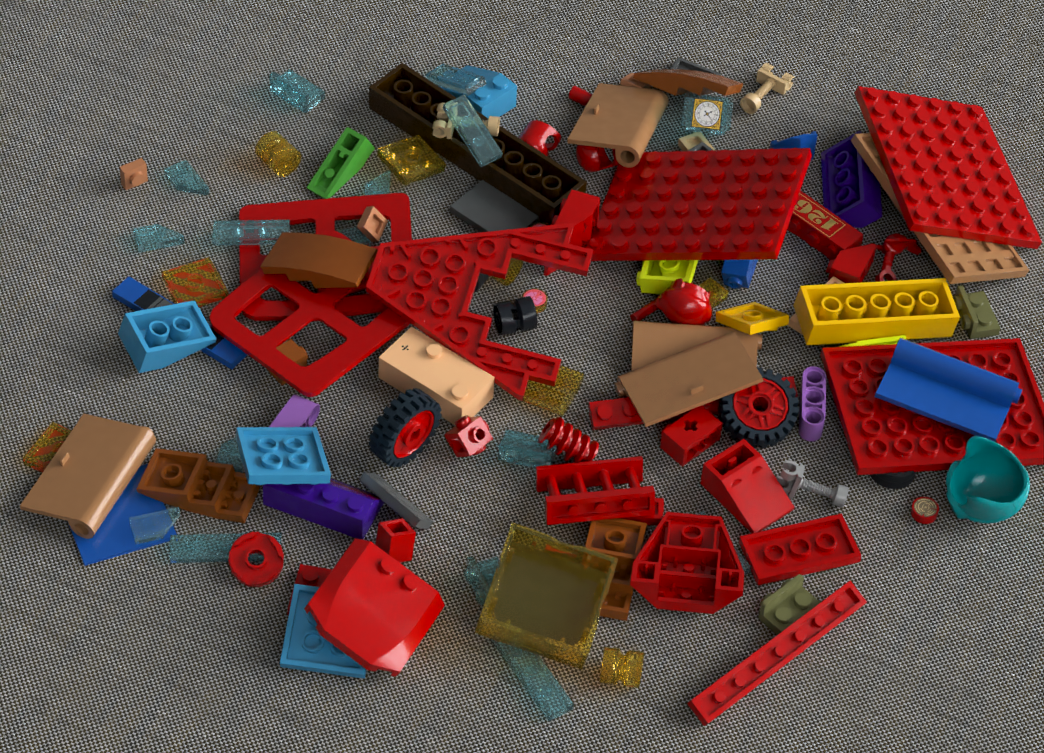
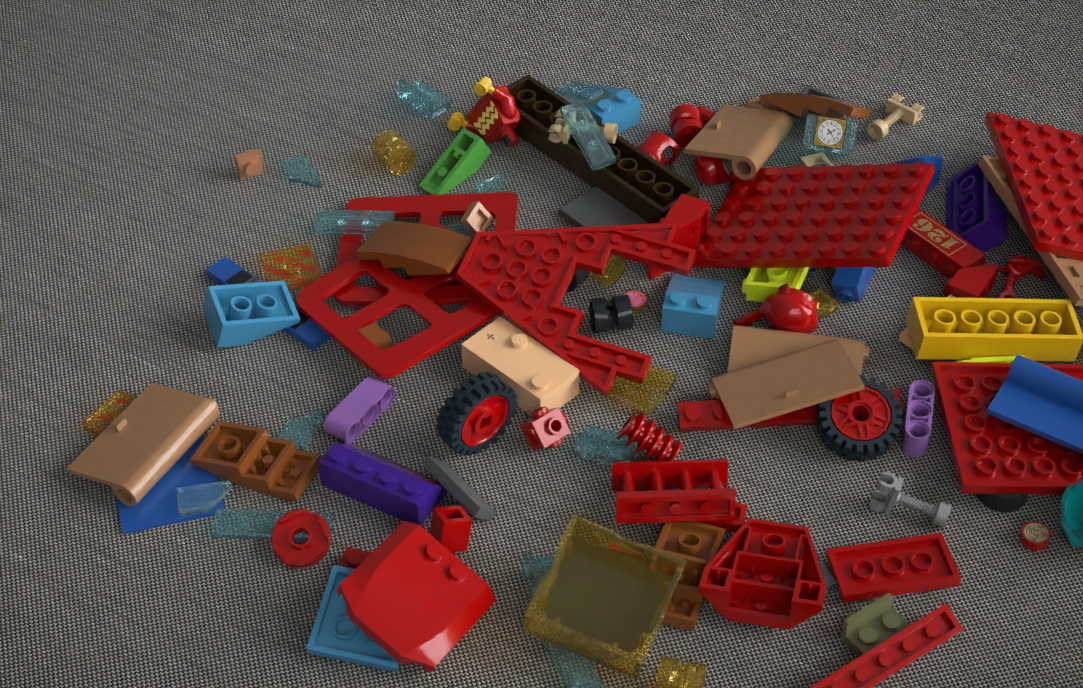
camera: 10 degrees right, 5 degrees down
(156, 237) = (260, 223): clear light blue tile -> none
(282, 455) = (343, 433): dark azure plate -> none
(370, 111) = (492, 116): none -> red torso
(411, 160) = (526, 164): clear yellow plate -> none
(563, 109) = (685, 124): none -> red wheel
(591, 302) = (692, 306): none -> dark azure slope
(690, 435) = (783, 442): red brick -> none
(746, 486) = (838, 497): red slope -> none
(752, 318) = (860, 329): yellow plate -> none

